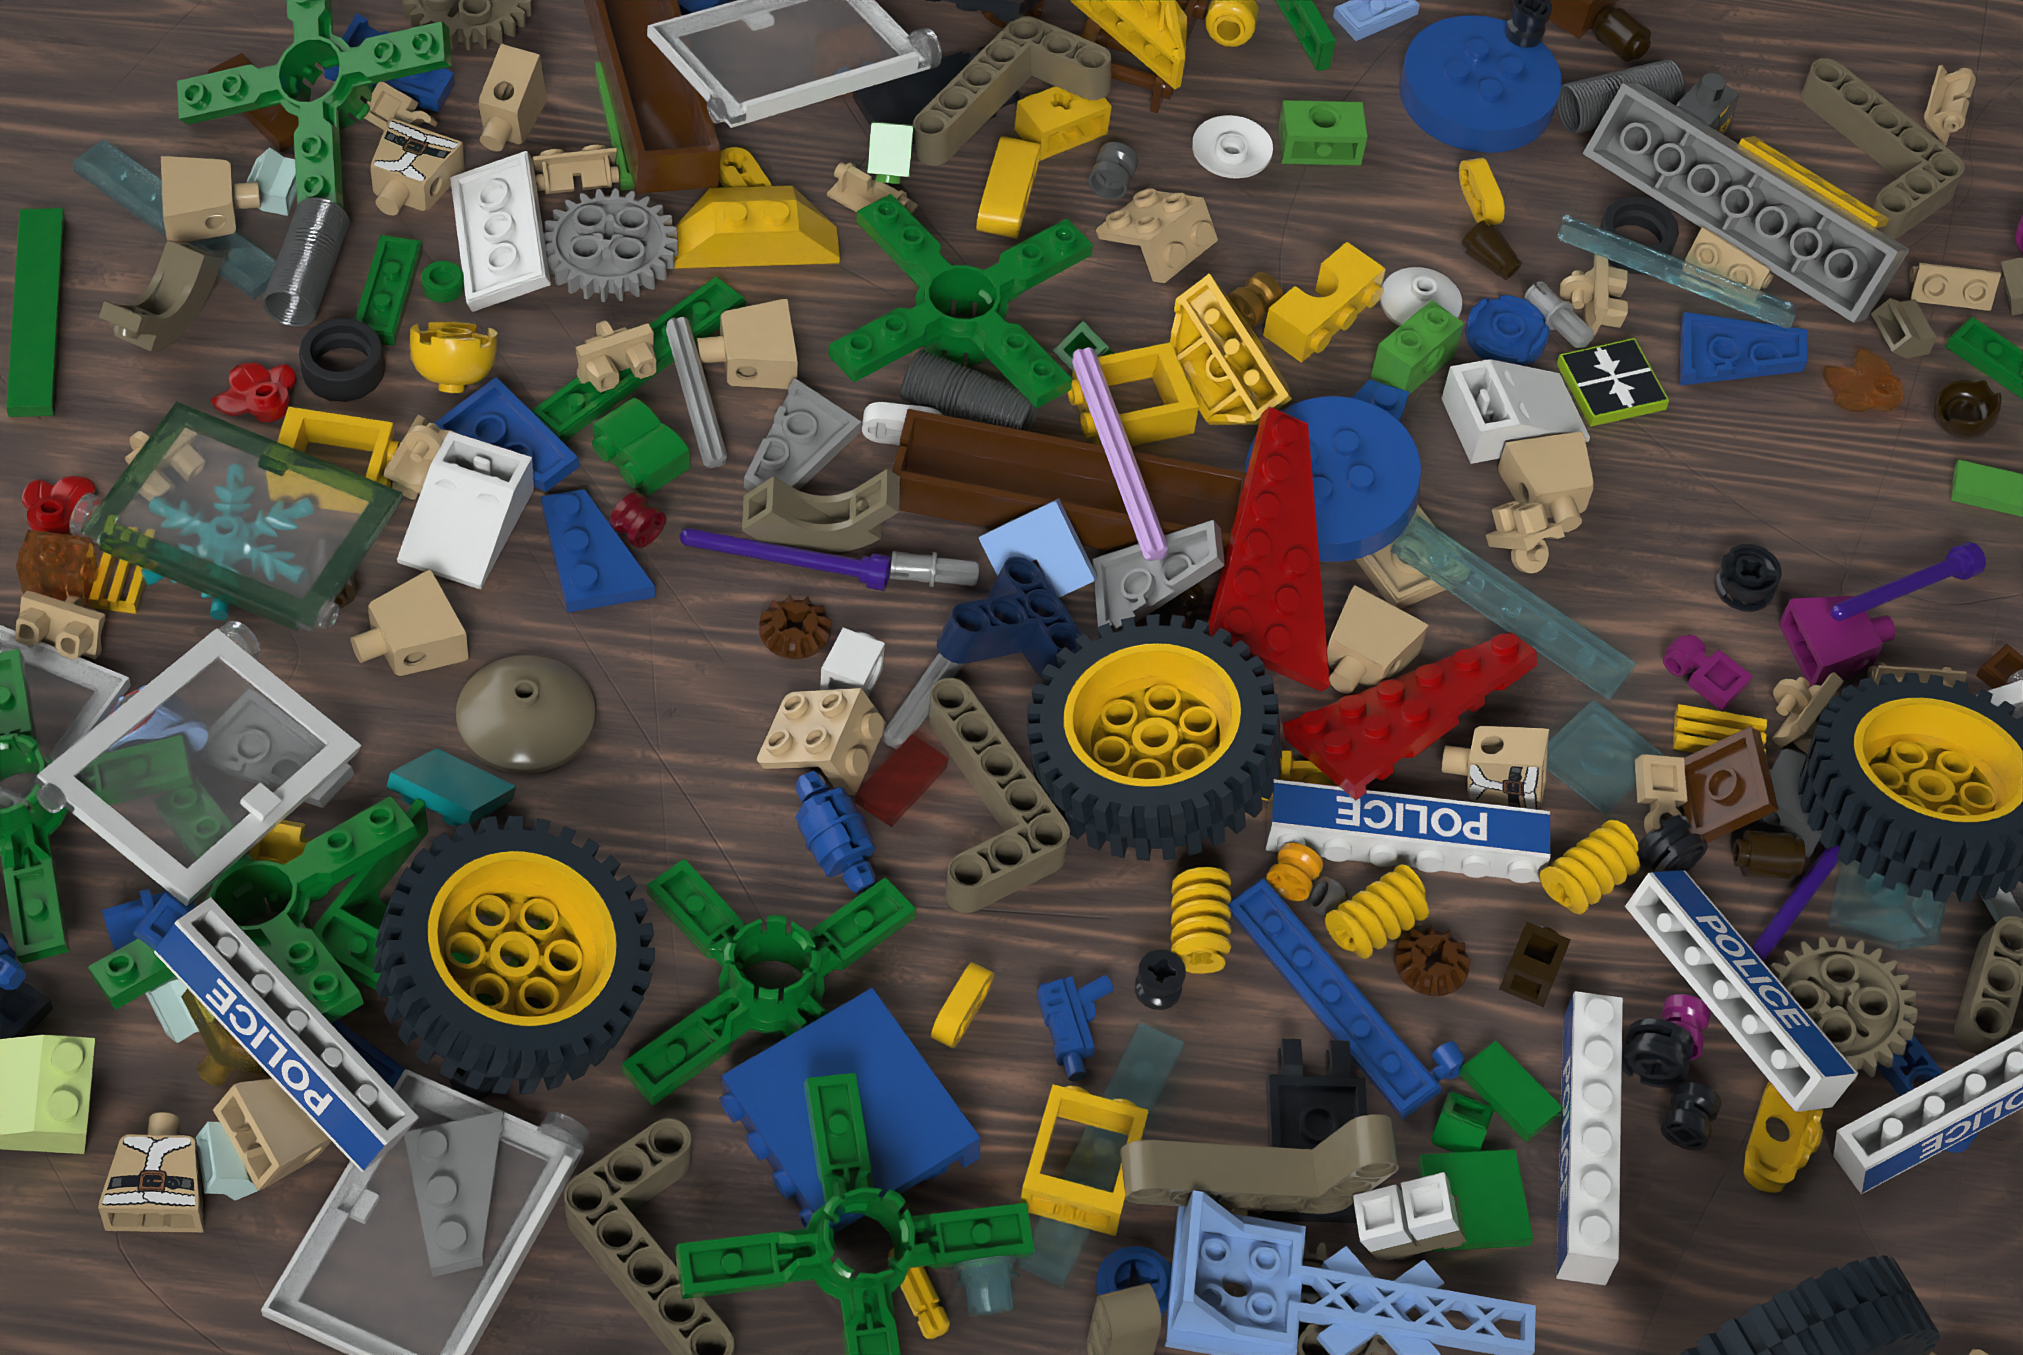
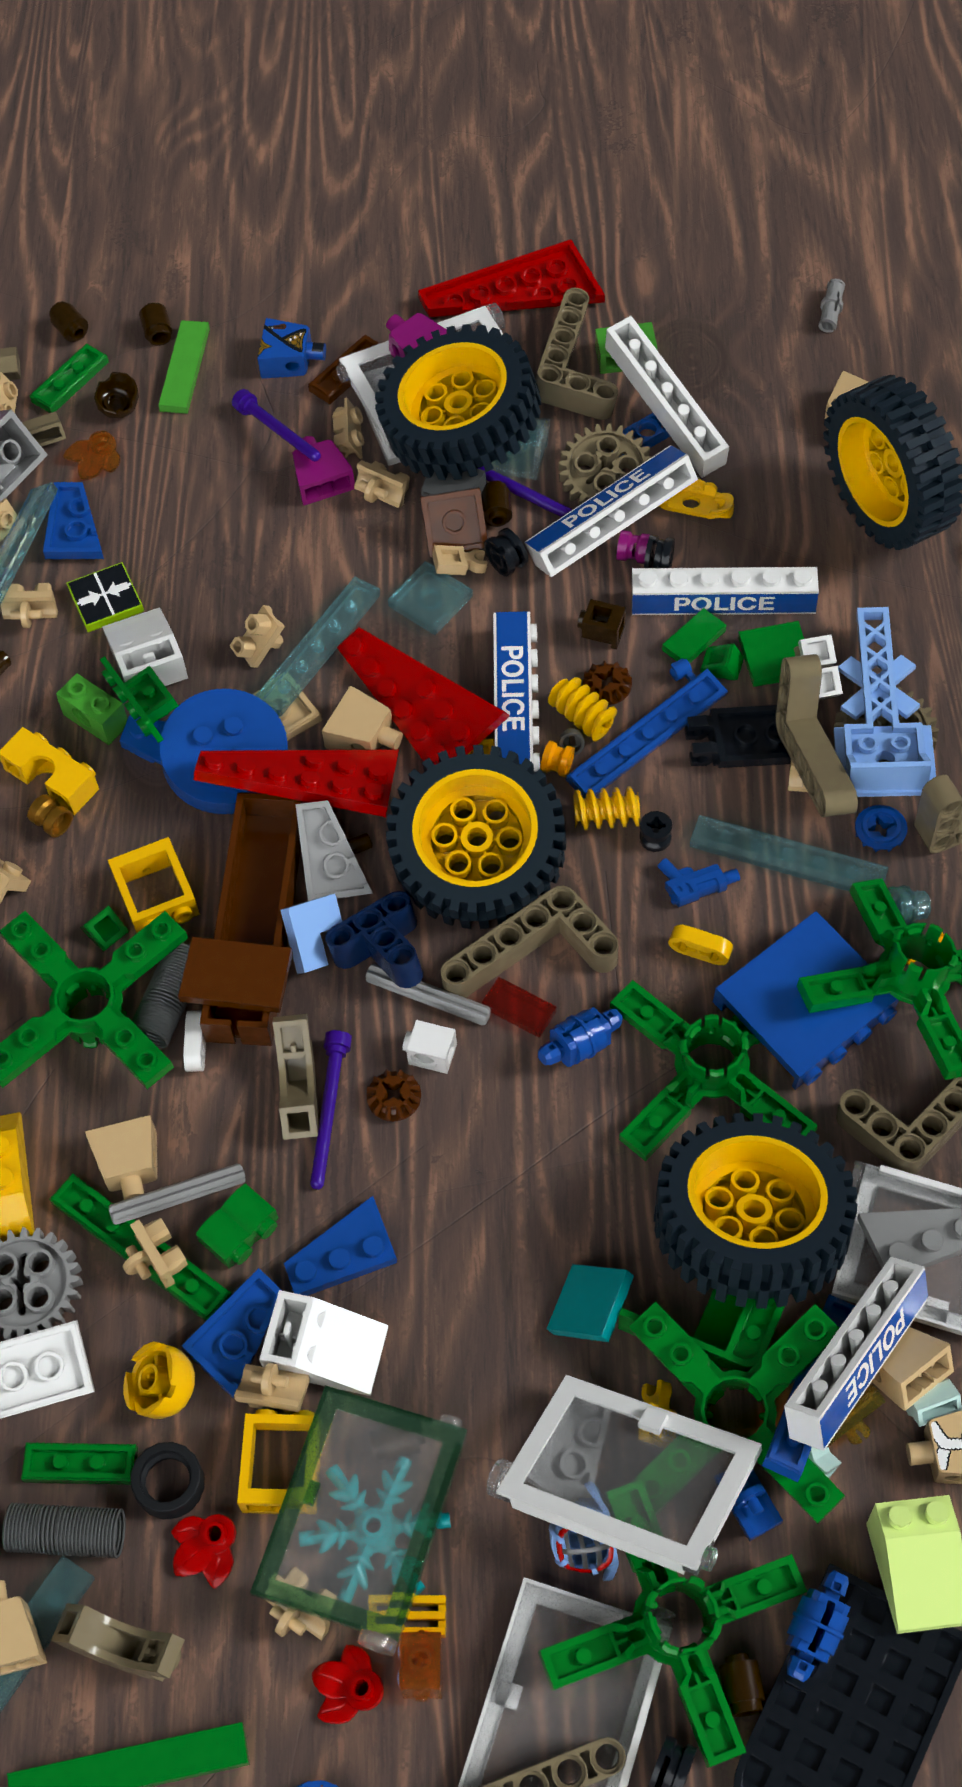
camera: 85 degrees left, 5 degrees up
(60, 624) = (478, 1646): tan hips -> none
(413, 628) = (439, 1365): tan torso -> none
(442, 281) = (67, 1419): green tile -> none
(525, 732) = (505, 1294): dark tan dish -> none
(637, 520) = (312, 1216): dark red wheel -> none
(802, 439) = (220, 1113): light grey wing -> none
(825, 731) = (493, 1062): tan bracket -> none
(933, 569) = (329, 1004): light grey axle -> none
(968, 445) = (235, 974): none -> reddish brown tile
(1069, 1200) = (808, 879): yellow window -> none
(1120, 454) = (232, 874): lavender axle -> none
(1224, 358) = (119, 824): yellow wedge -> none
(1409, 376) = (145, 697): none -> green bracket
(1413, 288) = (44, 719): white dish -> none
(1503, 765) = (458, 639): tan torso -> none
(1507, 330) = (60, 659): blue tile -> none
(1550, 472) = (203, 626): tan torso -> none
(1560, 315) = (48, 627): light grey axle -> none
(1592, 867) = (525, 593): yellow piece -> none
(1692, 1112) = (696, 542): black wheel -> none
(1709, 723) = (402, 515): yellow tile -> none
(1714, 678) = (358, 533): magenta plate -> none
(1748, 576) = (273, 517): black wheel -> none

